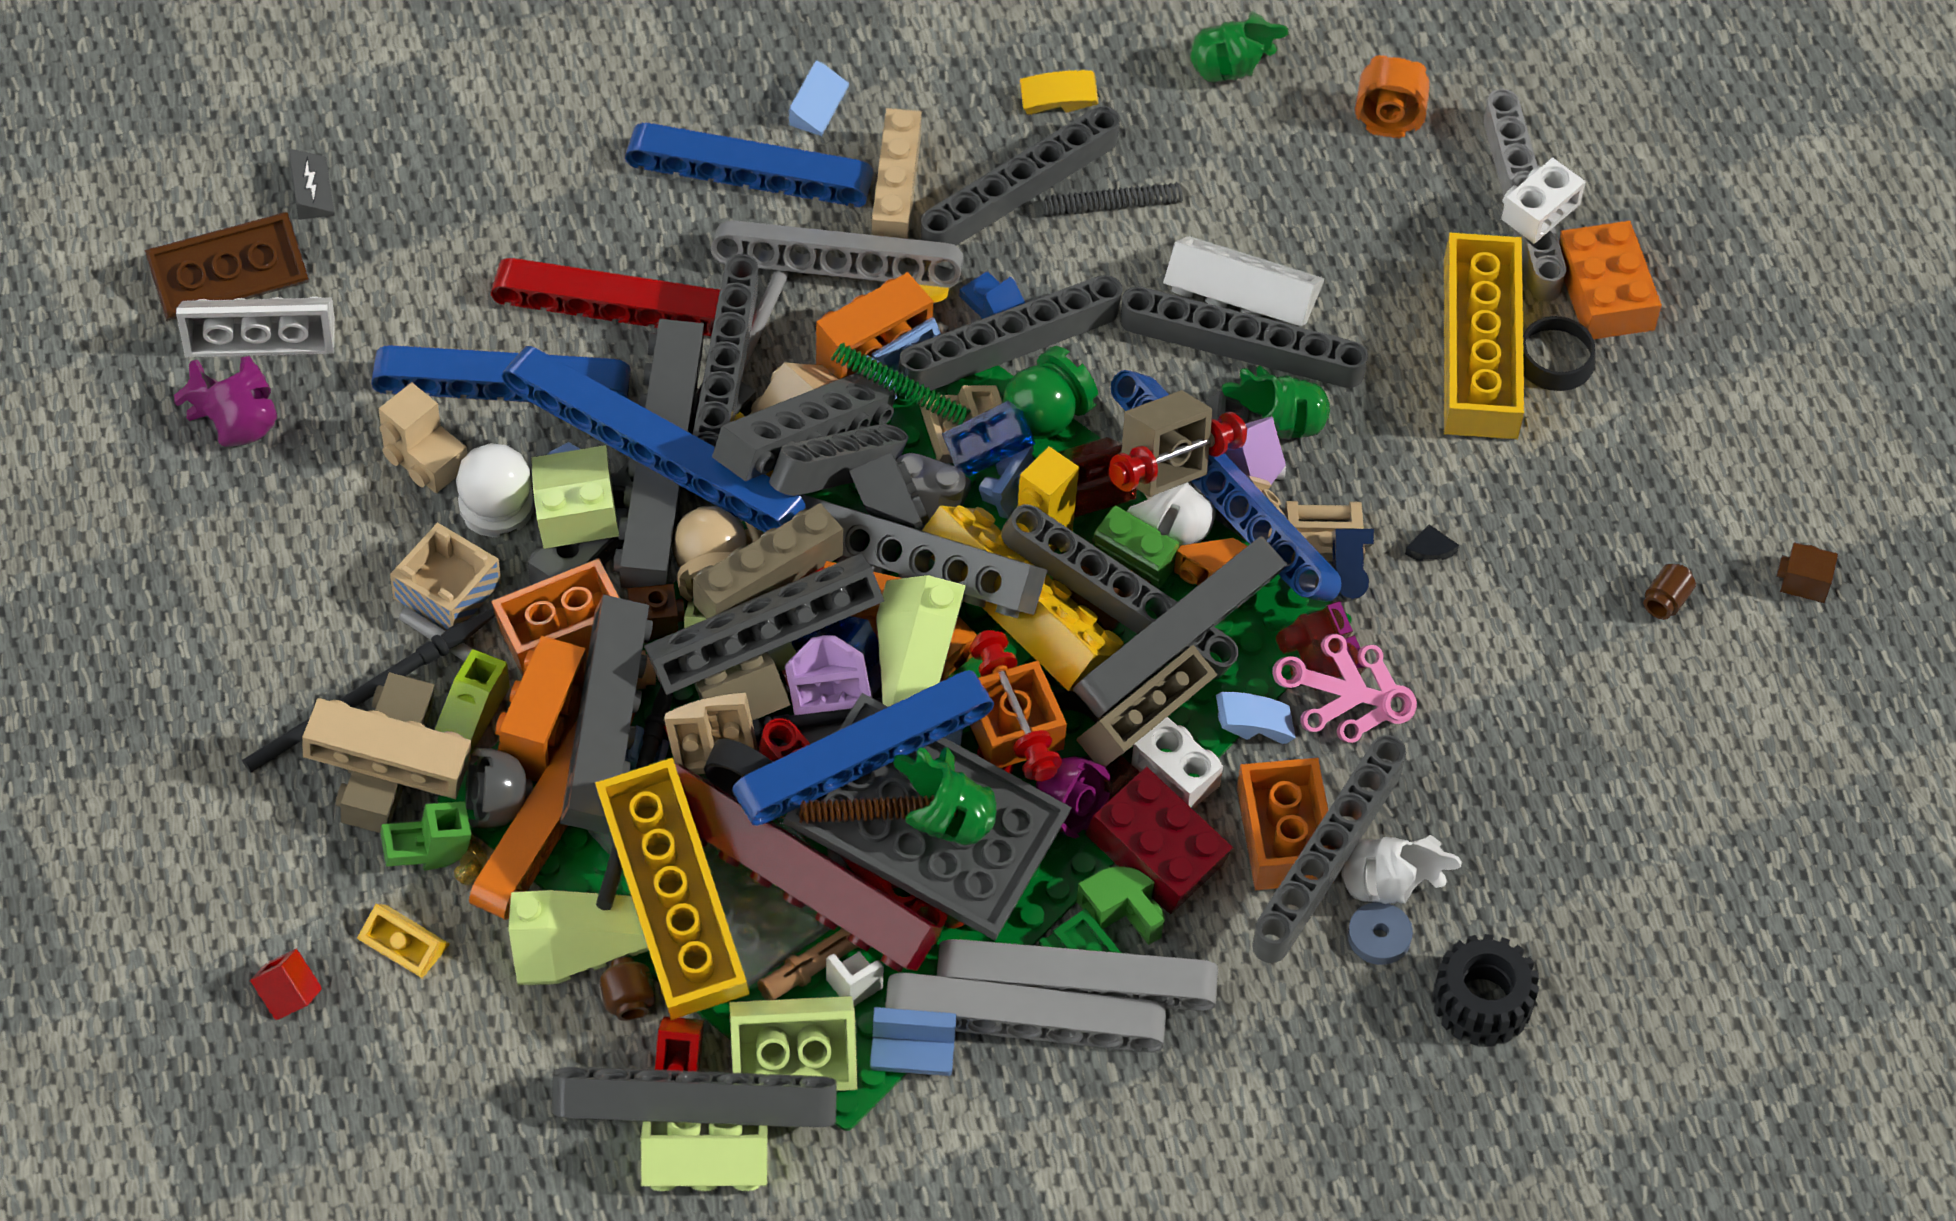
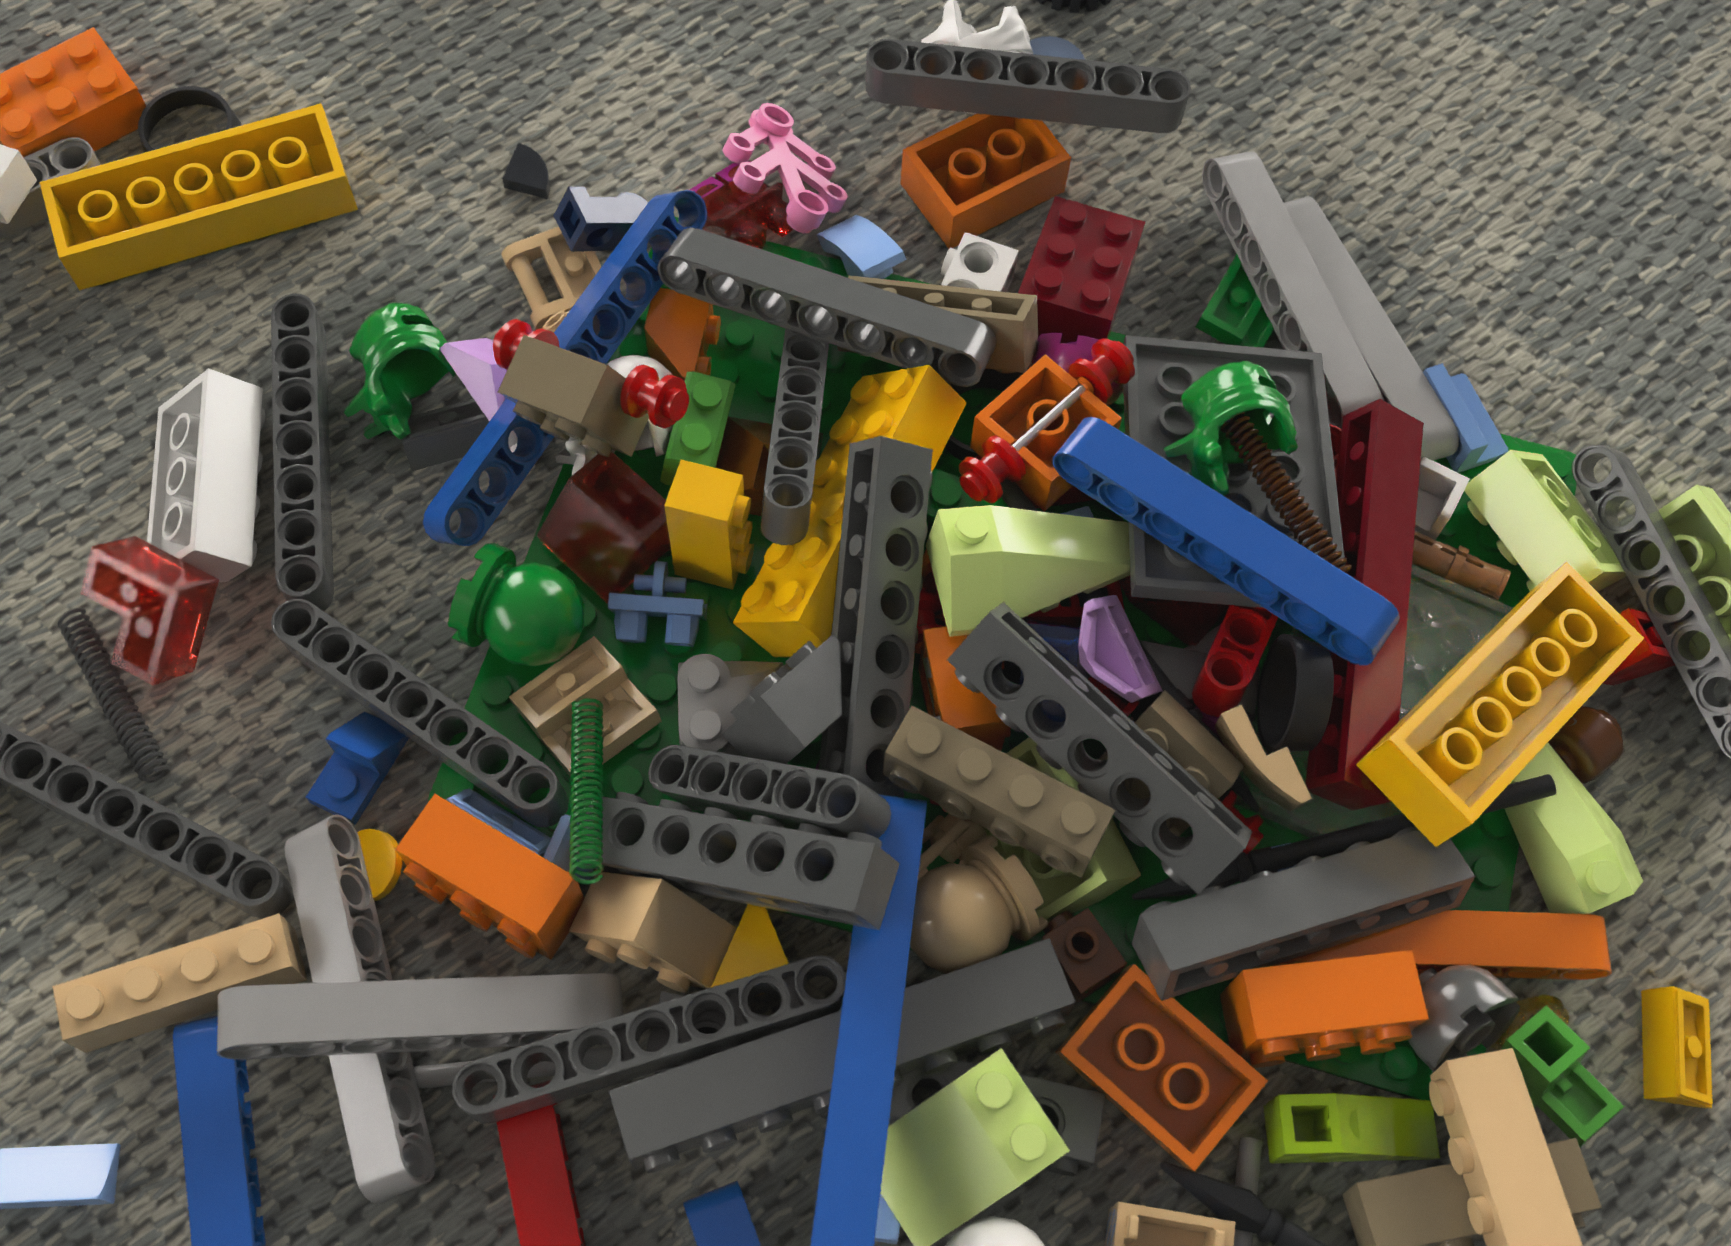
camera: 115 degrees left, 10 degrees up
(803, 264) = (409, 1014): none -> light grey beam
(988, 438) = (635, 634): clear blue brick -> none
(1122, 893) = (1154, 297): bright green brick -> none
(1152, 218) = (160, 604): none -> clear red brick

